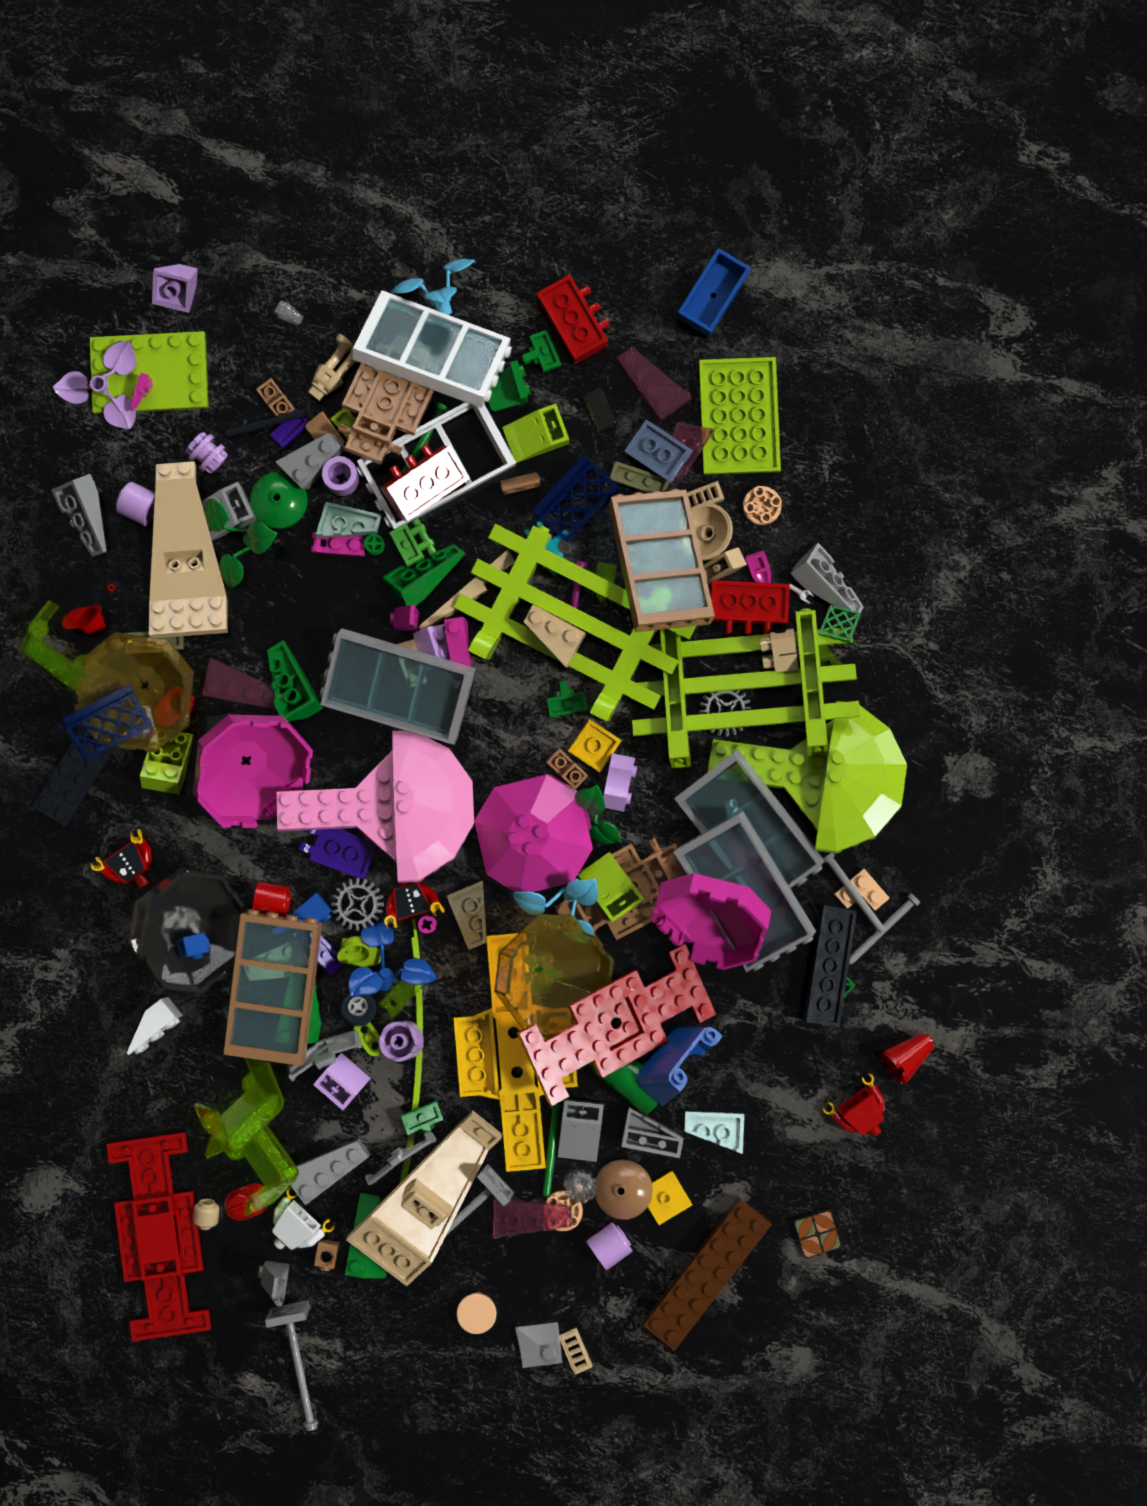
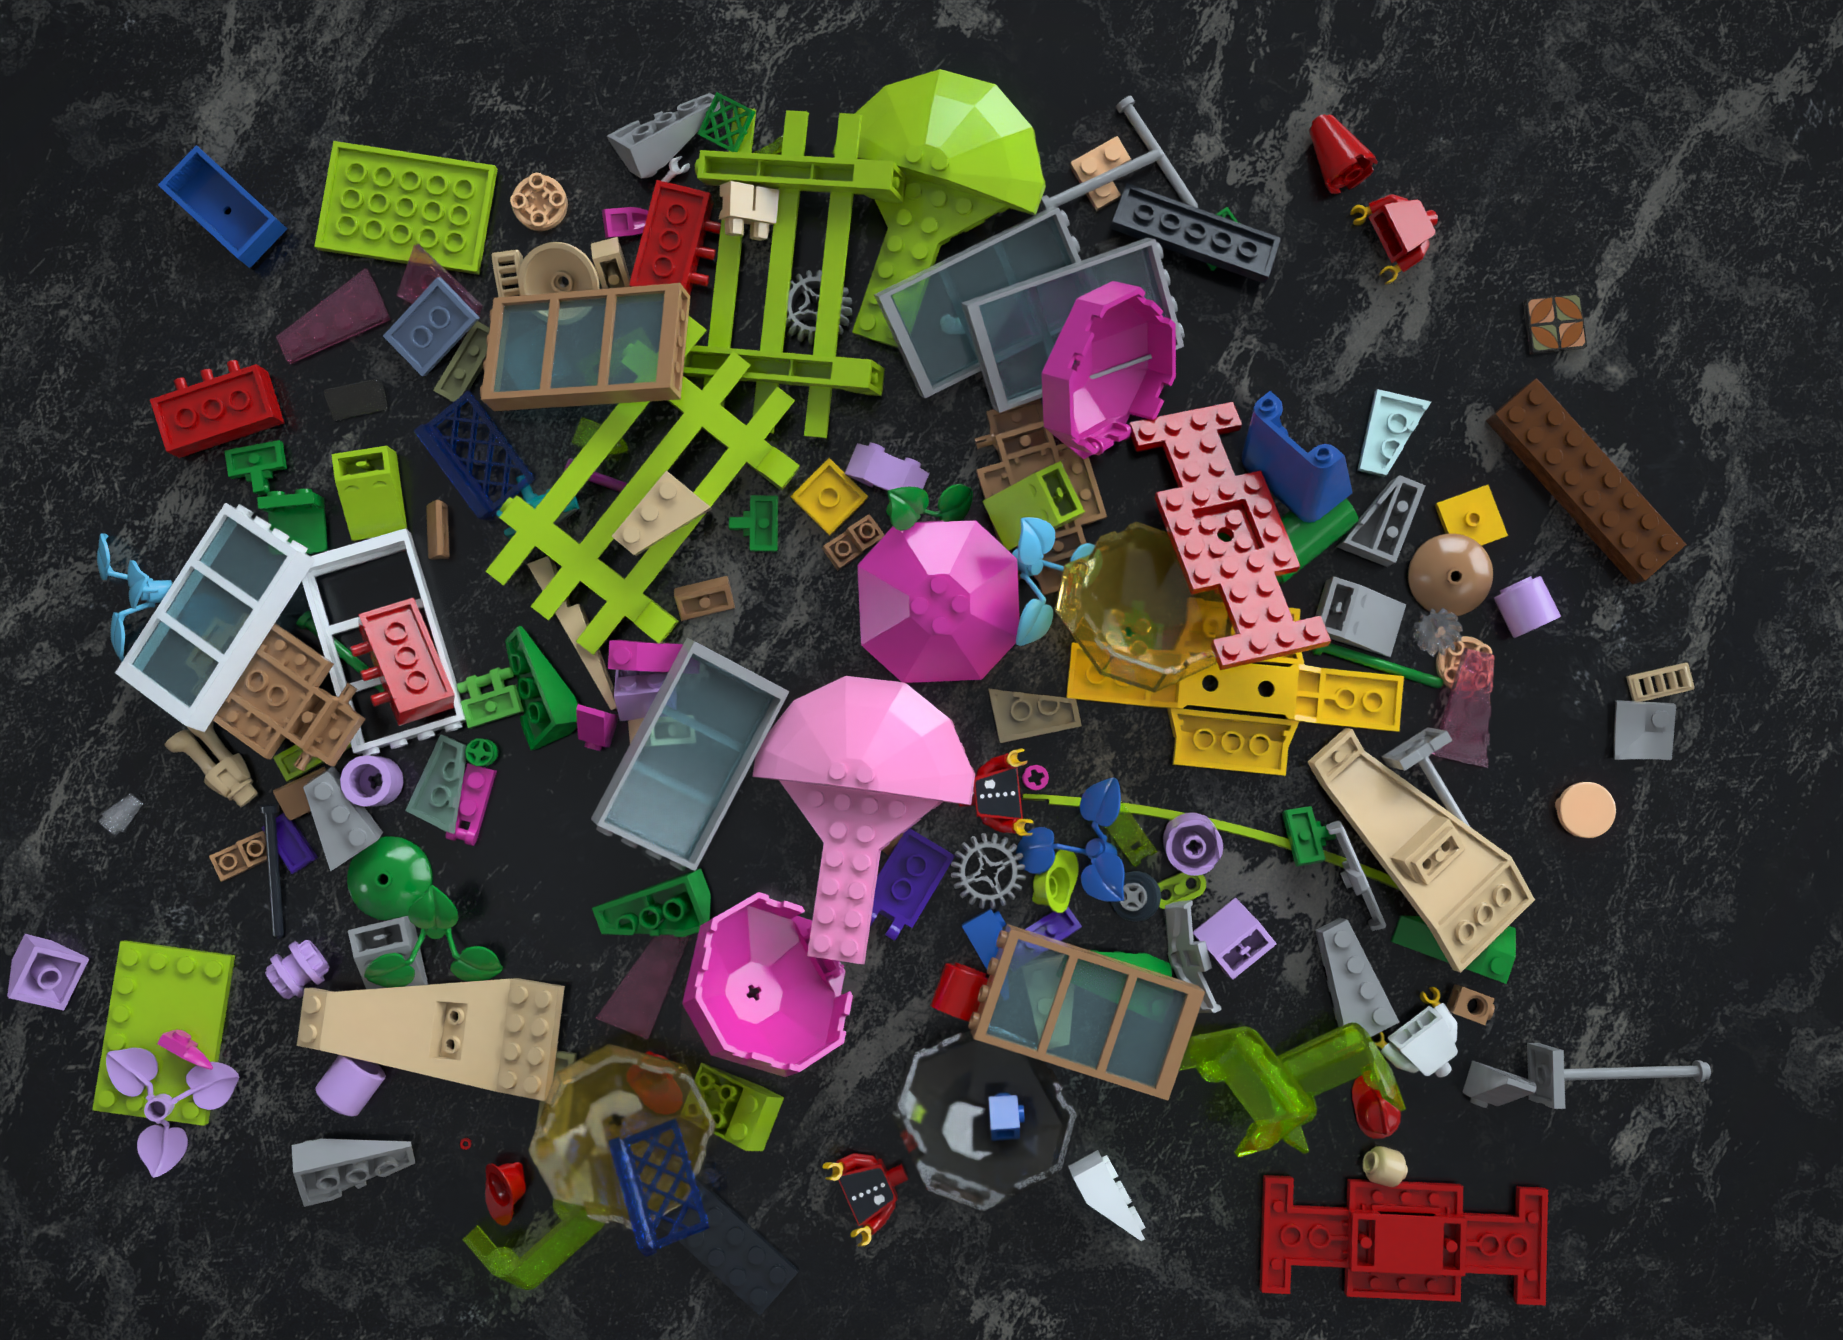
camera: 85 degrees left, 0 degrees up
(508, 673) = (704, 598): none -> medium nougat slope

